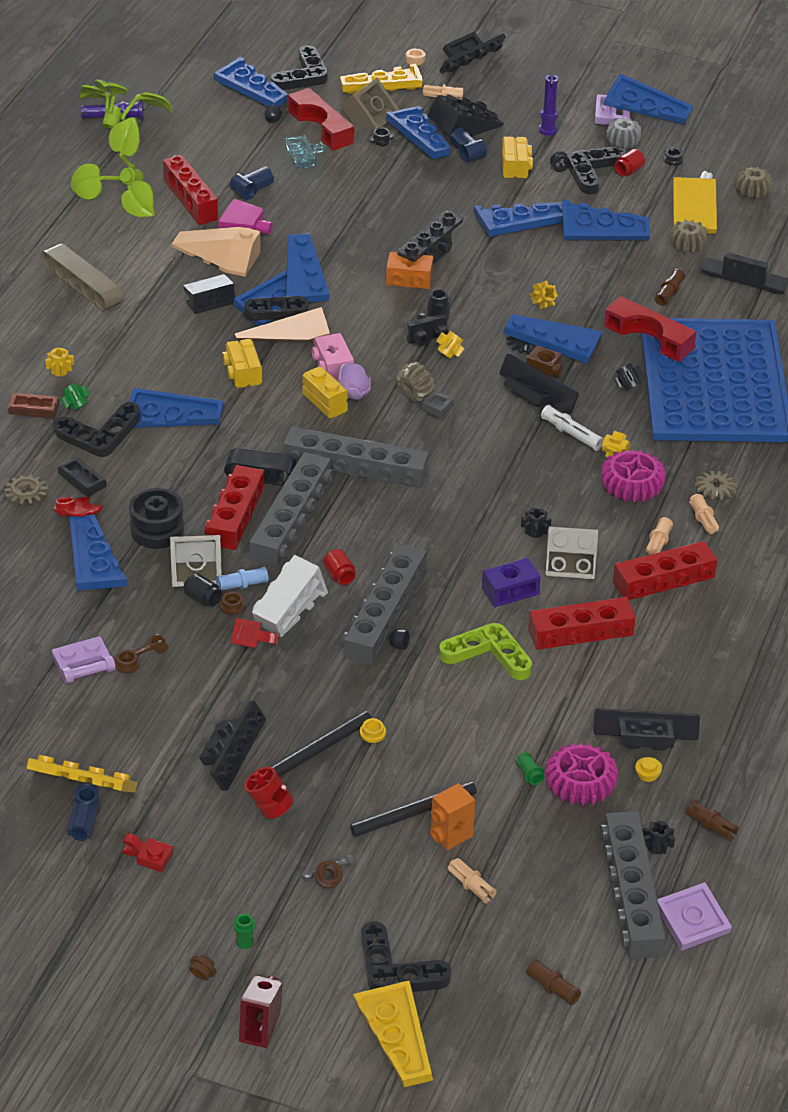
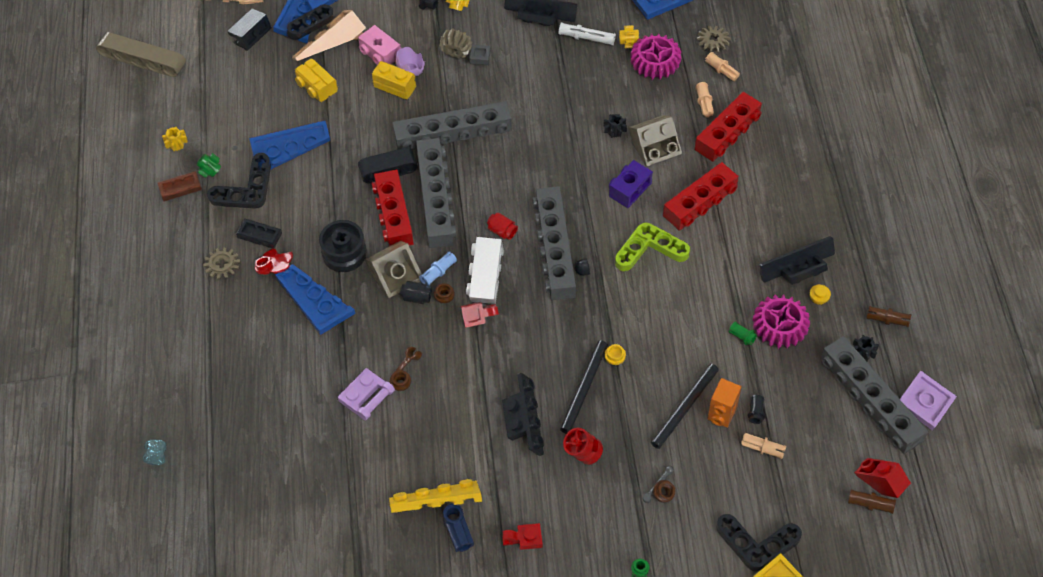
camera: 25 degrees left, 15 degrees up
(485, 848) = (756, 413): none -> black pin
(584, 963) = (883, 476): none -> red slope

